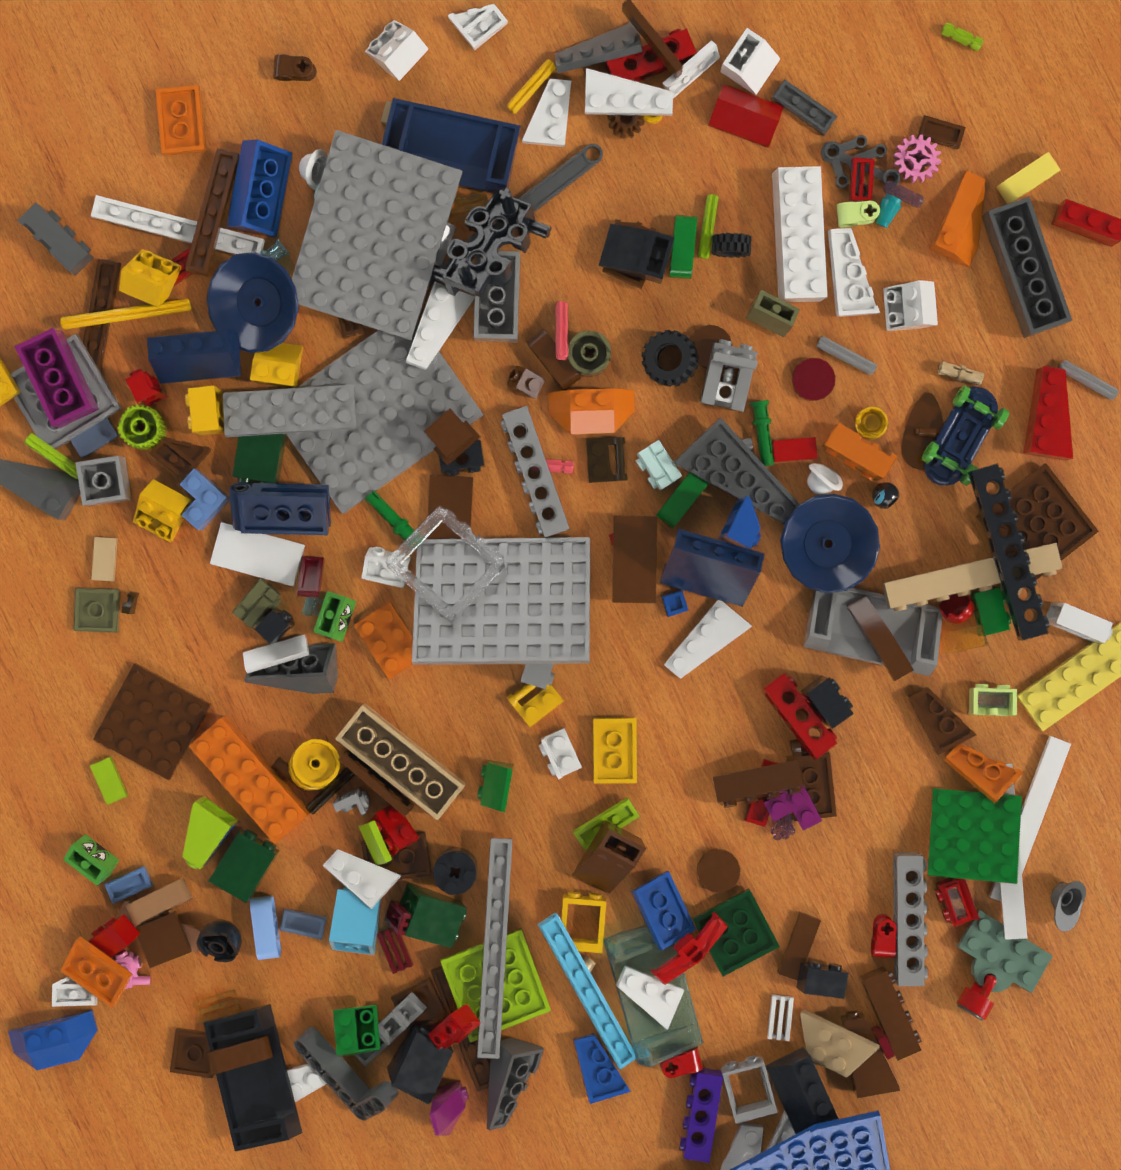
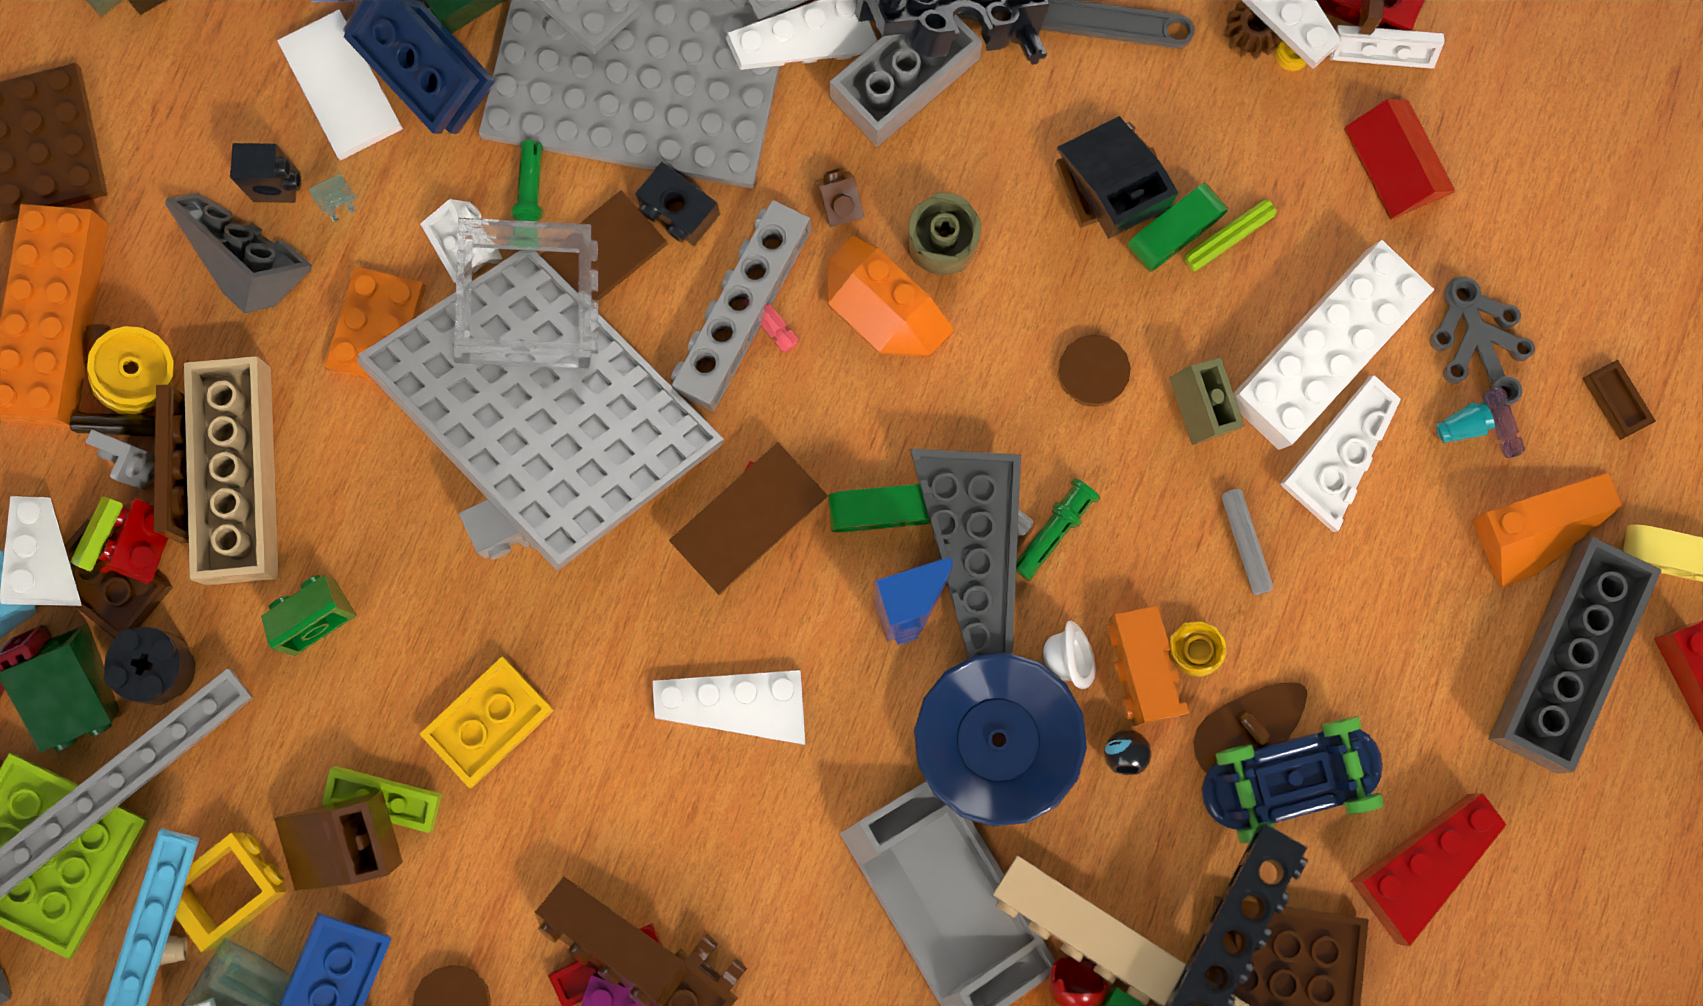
camera: 45 degrees right, 10 degrees down
(257, 603) = (290, 128): olive brick -> none
(276, 653) = (235, 209): white tile -> none
(310, 576) = (365, 162): dark red tile -> none
(334, 616) = (341, 232): bright green brick -> none
(451, 436) = (687, 160): reddish brown plate -> none
(537, 706) = (455, 575): yellow plate -> none
(545, 351) = (896, 202): reddish brown beam -> none
(560, 753) = (420, 657): white bracket -> none
(561, 323) = (939, 178): coral axle -> none
(599, 460) = (830, 368): dark brown plate -> none
(655, 347) = (1028, 305): black tyre -> none
(658, 465) = (892, 437): light aqua brick -> none
(674, 603) = (743, 622): blue tile -> none
(712, 568) = (824, 612): dark blue panel -> none
(731, 245) = (1236, 276): black tyre -> none
(741, 358) = (1104, 396): light grey brick -> none
(750, 62) = (1465, 100): white slope -> none
(794, 449) = (1072, 588): red tile -> none
(800, 729) = (724, 972): red brick -> none
(804, 107) = (1479, 215): dark grey tile -> none
(813, 379) = (1179, 529): dark red tile -> none
(827, 701) = (797, 931): black brick -> none
(852, 198) = (1446, 377): red tile -> none
(854, 213) = (1421, 387): yellowish green piece -> none
(880, 638) = (943, 921): reddish brown slope -> none
(910, 306) = (1384, 559): white slope -> none
(918, 150) = (1577, 397): bright pink gear -> none
(960, 373) = (1367, 701): tan pin -> none
(1089, 380) = (1523, 874): light grey axle -> none

